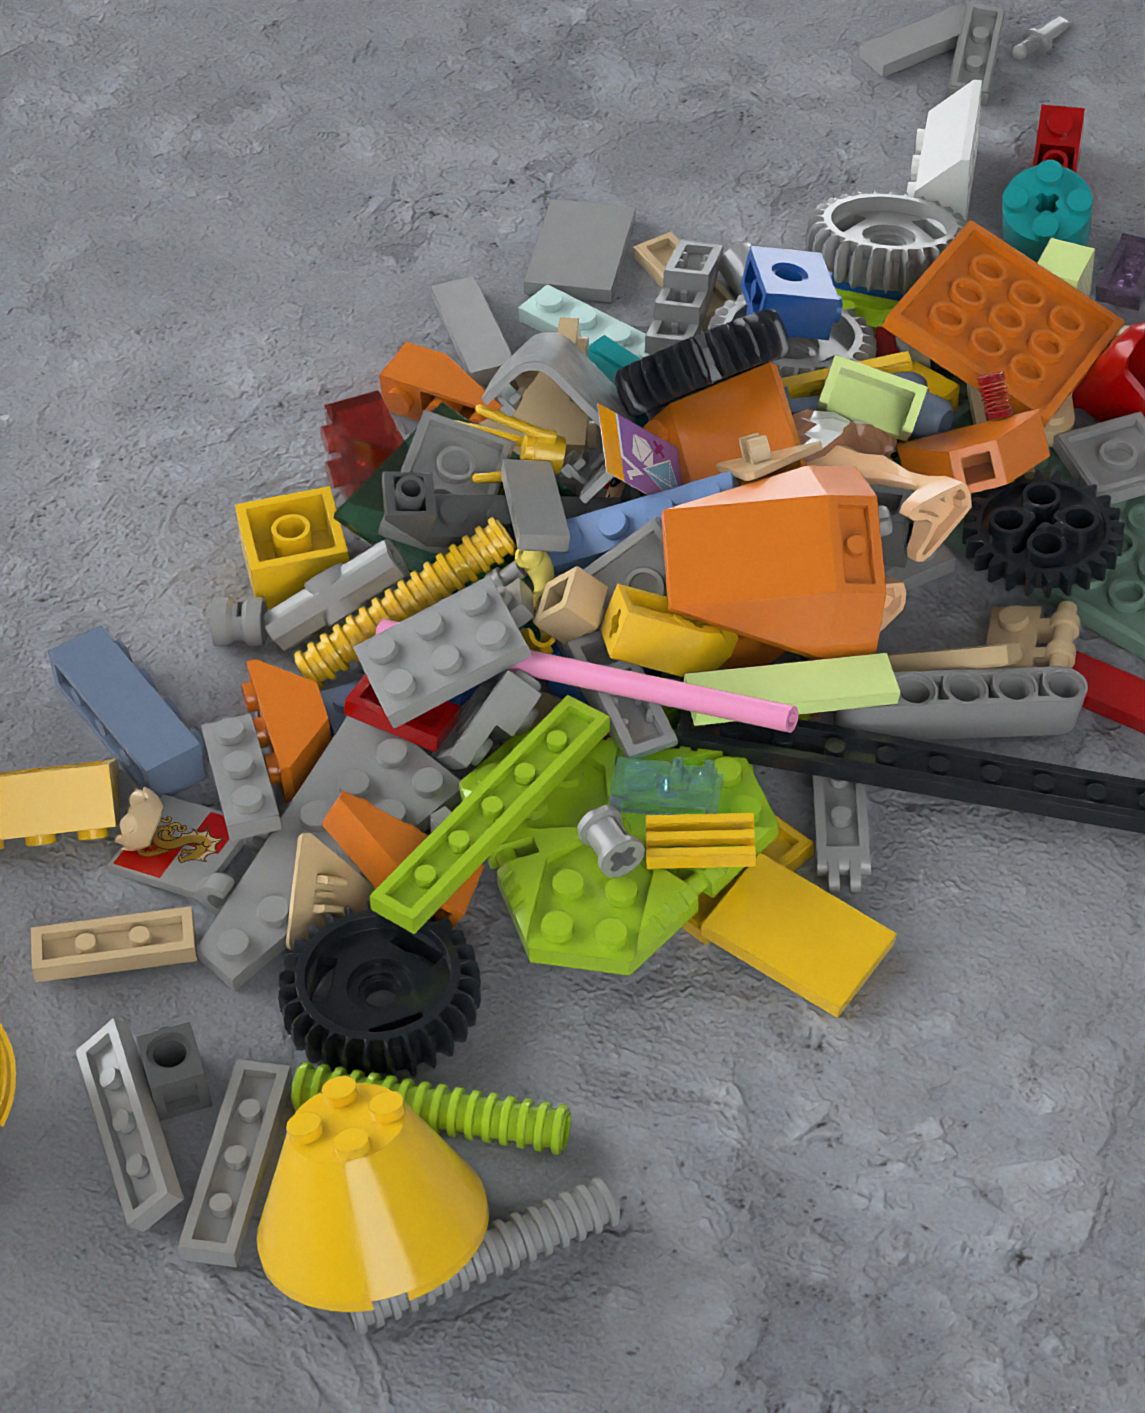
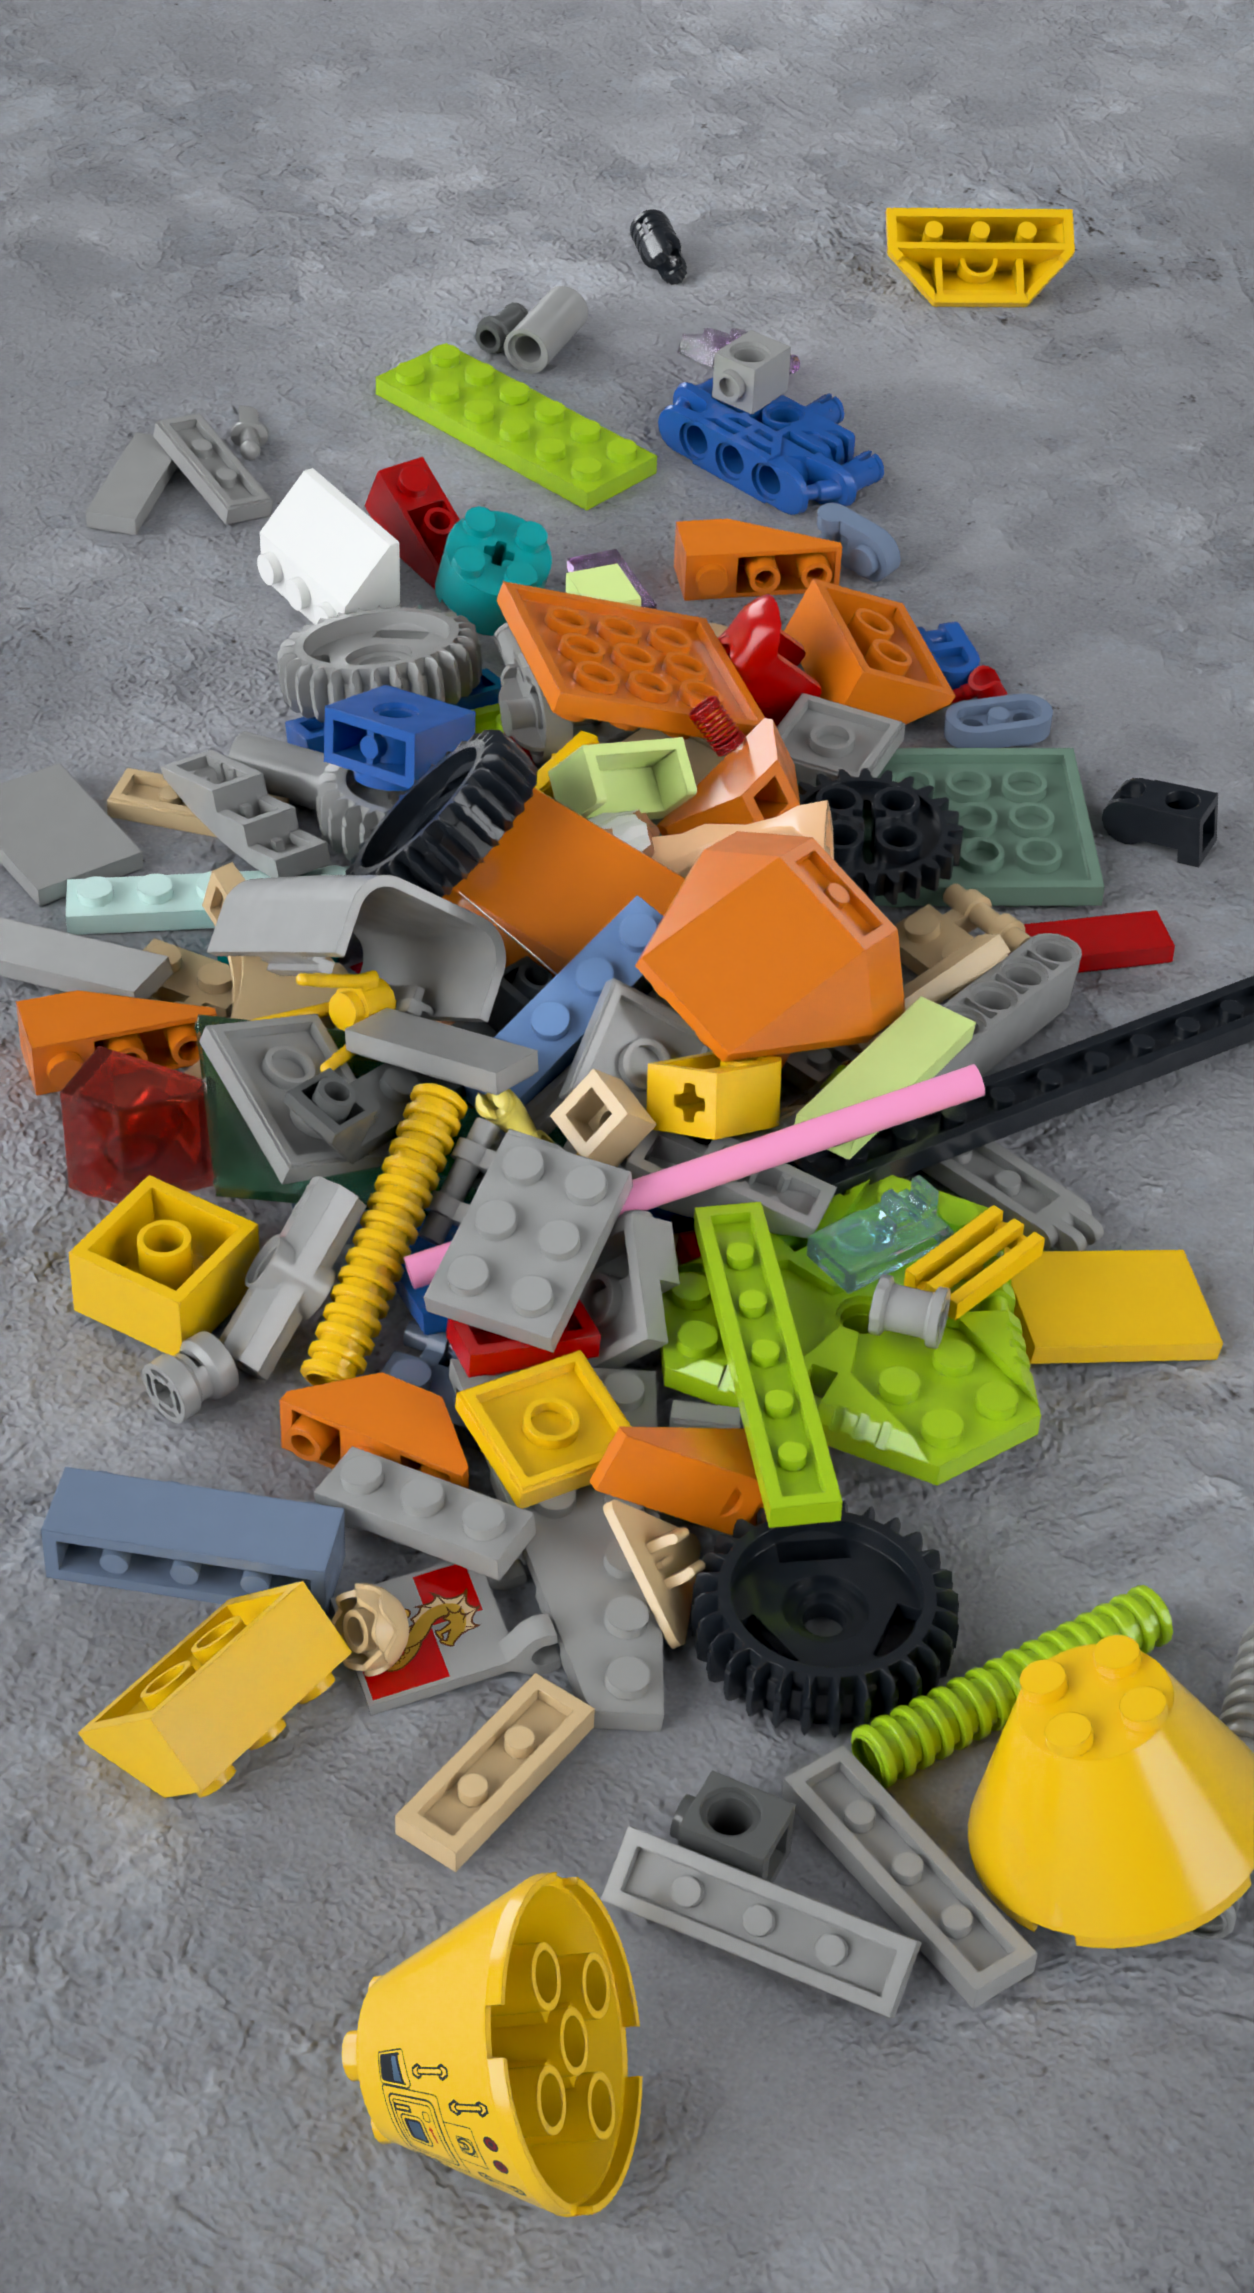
camera: 50 degrees left, 5 degrees down
(349, 759) = (542, 1426): none -> yellow tile
(760, 460) = (647, 873): tan piece -> none

